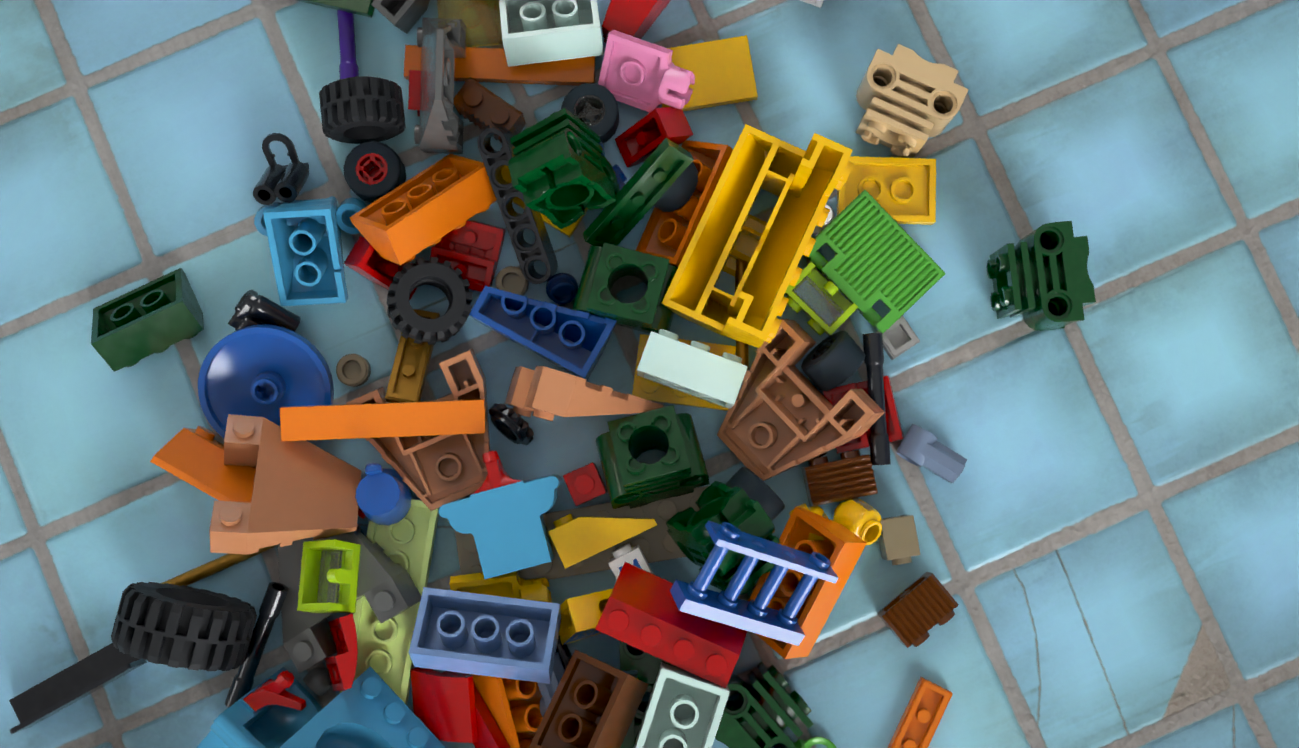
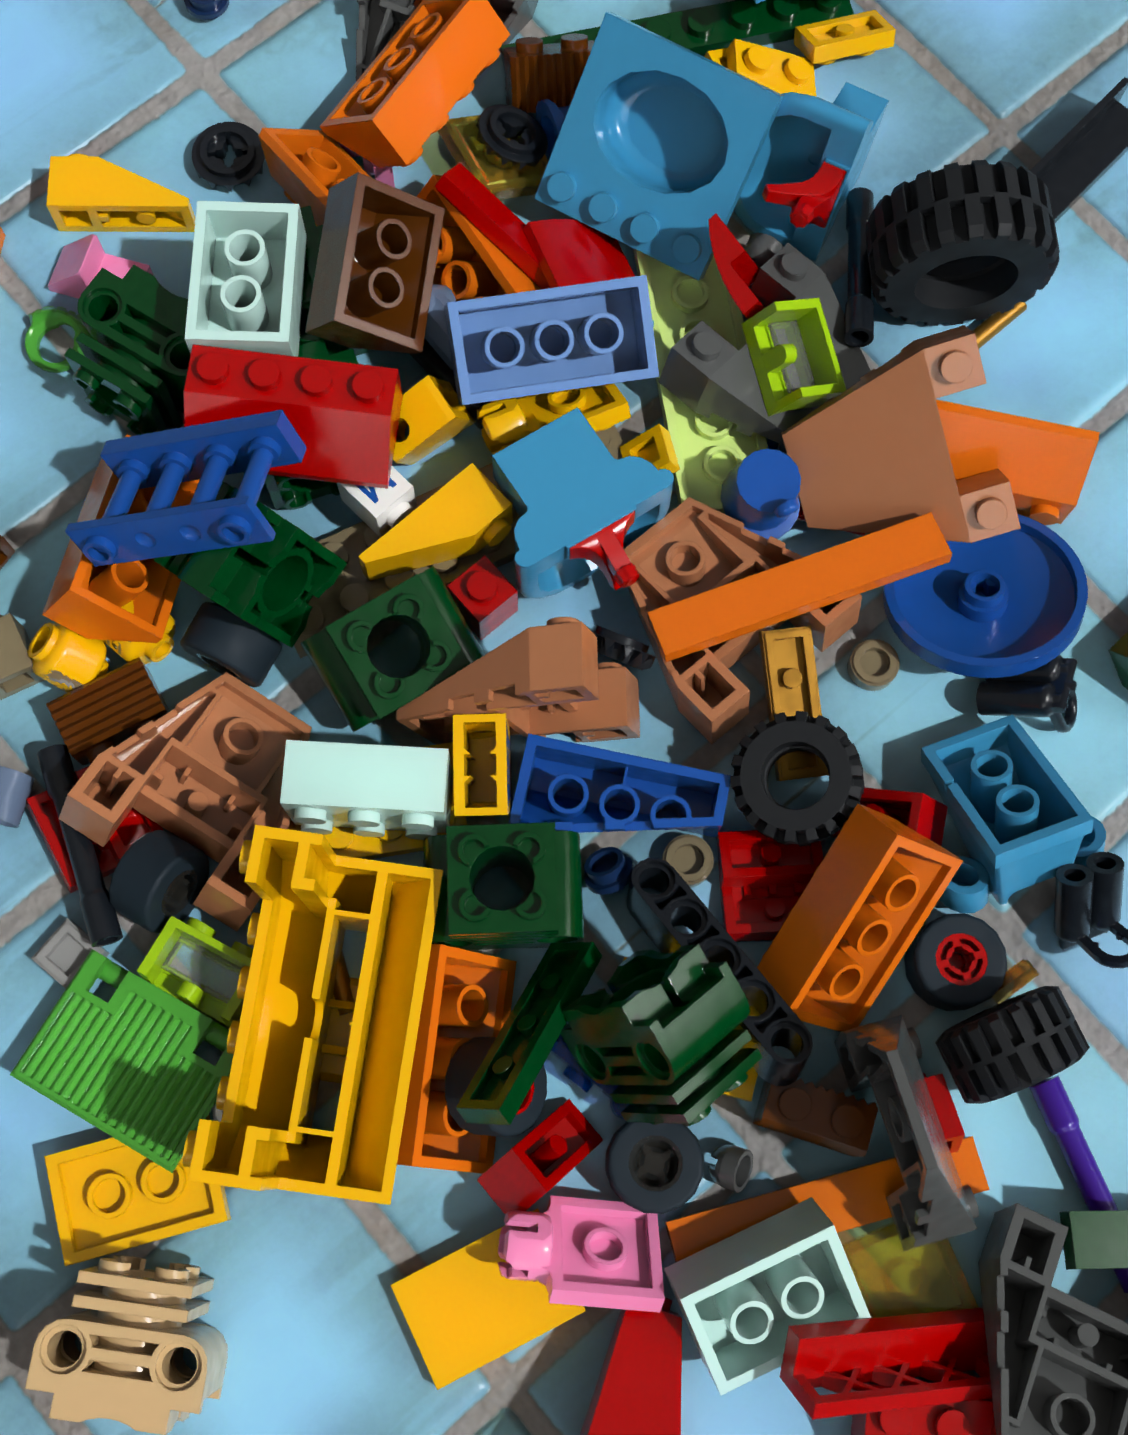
camera: 155 degrees right, 10 degrees down
(340, 151) = (1015, 979): none -> clear orange tile
(446, 548) = (654, 446): none -> yellow plate
(547, 101) = (732, 1167): none -> dark grey hinge
(618, 361) = (481, 765): none -> yellow torso

